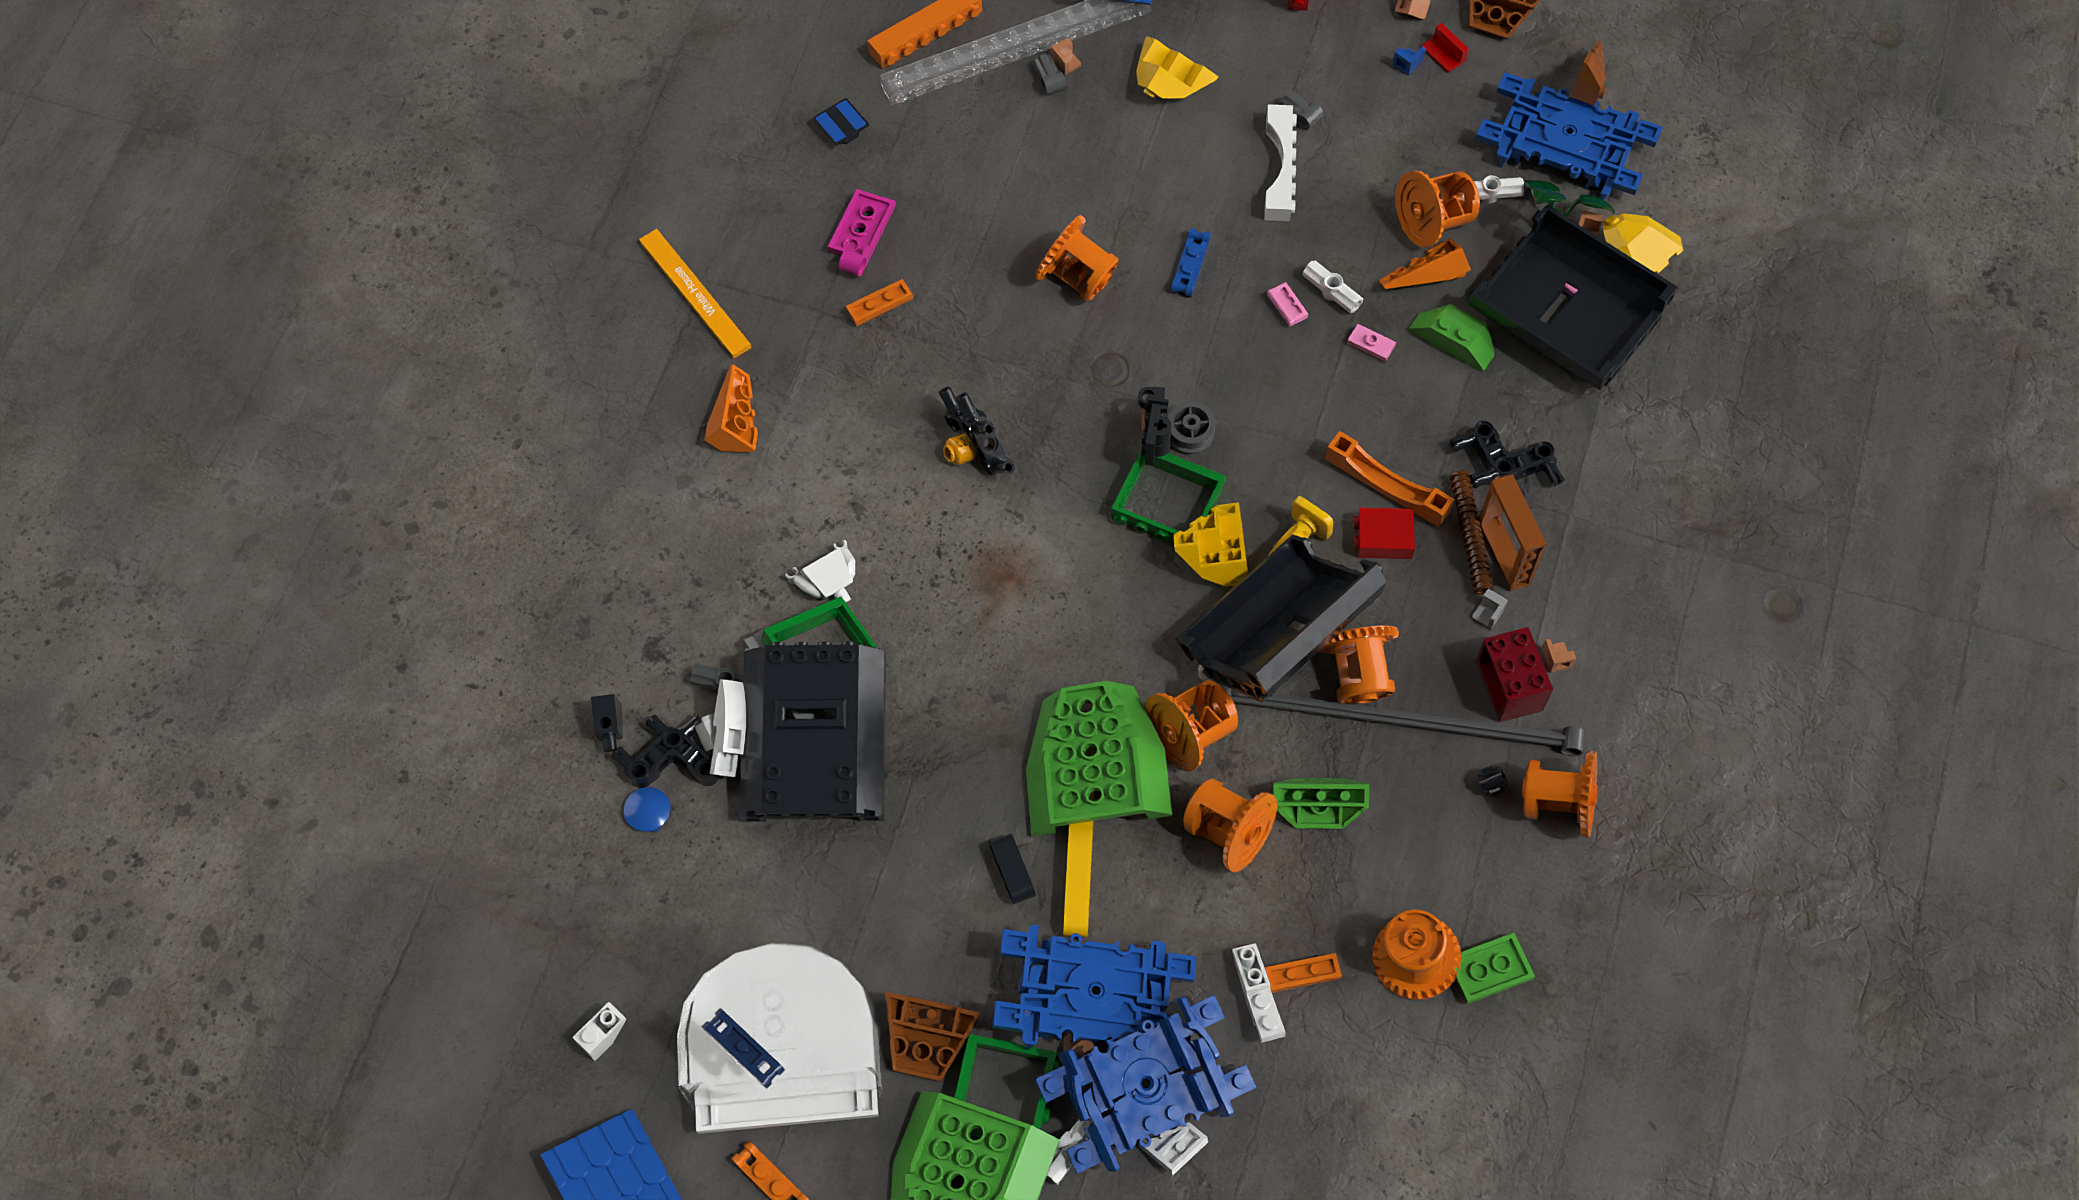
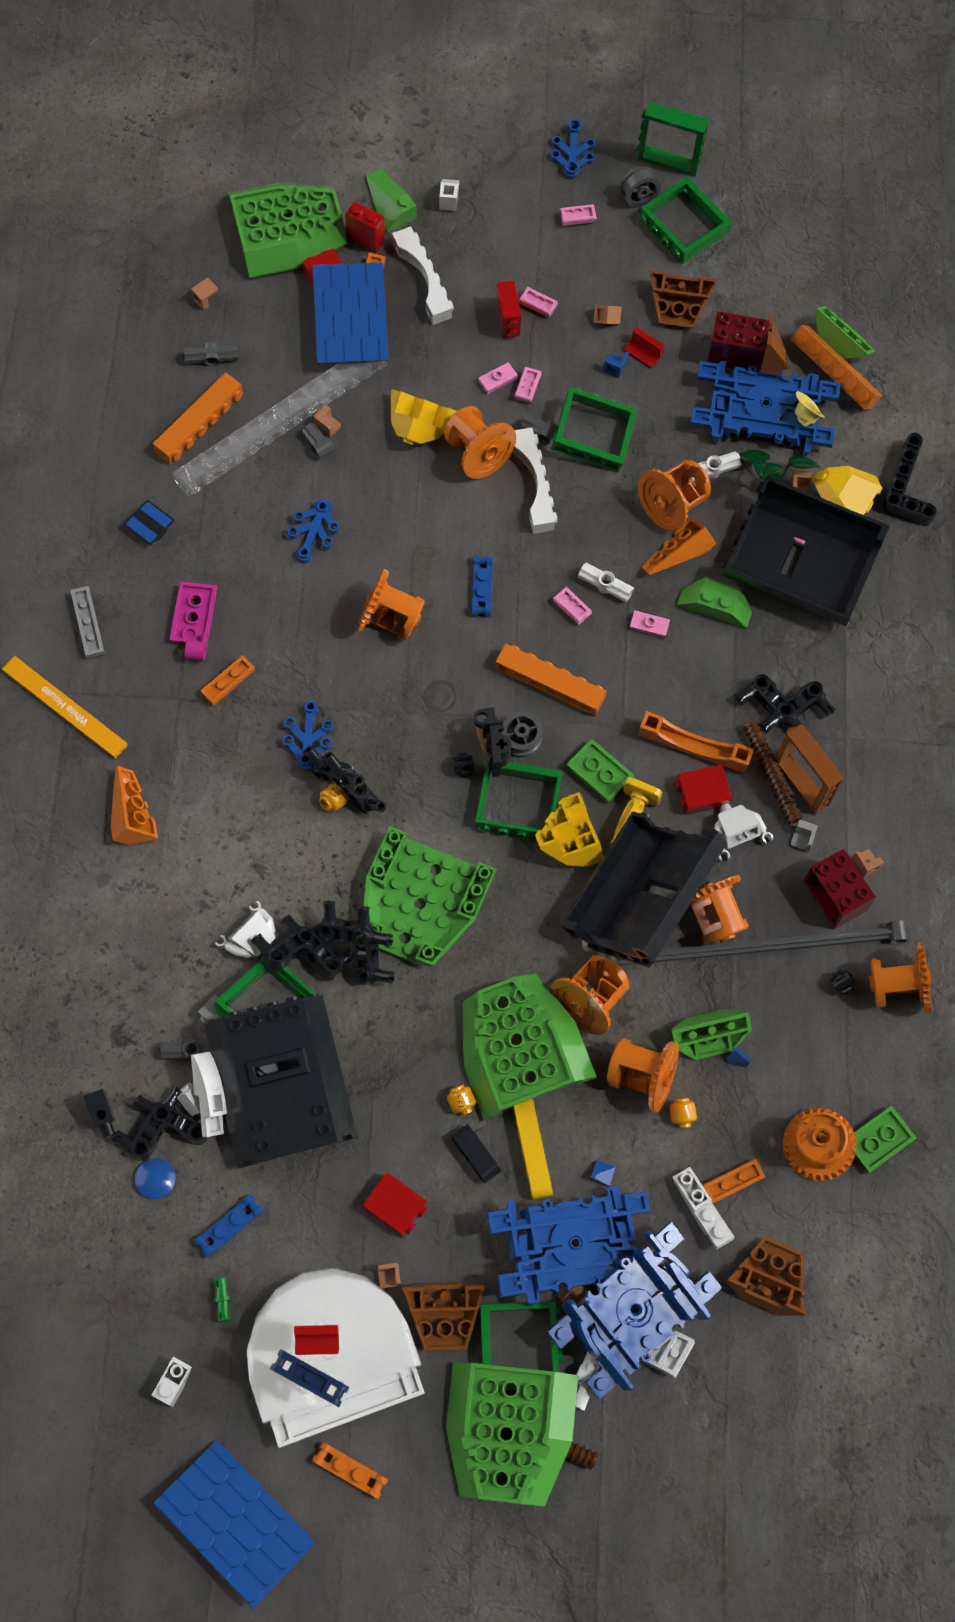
camera: 20 degrees left, 5 degrees up
(682, 957) = (222, 1300): none -> green pin
(713, 880) = (228, 1226): none -> blue plate
(744, 210) = (87, 622): none -> light grey plate
(763, 1008) = (316, 1340): none -> red panel
(876, 977) = (389, 1276): none -> nougat panel
(880, 594) = (293, 946): none -> black pin
(905, 902) = (395, 1205): none -> red brick
(947, 603) = (362, 939): none -> black pin
(950, 380) = (307, 737): none -> blue plant
(1012, 805) = (461, 1099): none -> light orange head
(1014, 551) = (403, 877): none -> bright green wedge
(1019, 163) = (313, 527): none -> blue plant
(1115, 446) = (463, 764): none -> black gear
(1152, 926) = (603, 1173): none -> blue slope
(1230, 113) = (484, 446): none -> orange piece
(1240, 377) = (550, 679): none -> orange brick
(1264, 881) = (683, 1112): none -> light orange head
(1268, 486) = (599, 770): none -> bright green plate
(1270, 49) = (497, 378): none -> bright pink plate
(1301, 62) = (528, 385): none -> bright pink plate
(1317, 1092) = (772, 1278): none -> dark orange wedge
(1346, 837) = (738, 1058): none -> blue slope
(1347, 144) = (586, 452): none -> green window
(1414, 581) = (740, 826): none -> white torso
(1553, 57) = (738, 340): none -> dark red container
(1614, 146) = (807, 410): none -> light yellow piece
(1663, 110) = (836, 367): none -> orange brick
(1676, 77) = (841, 335): none -> bright green wedge
(1697, 266) = (901, 481): none -> black beam

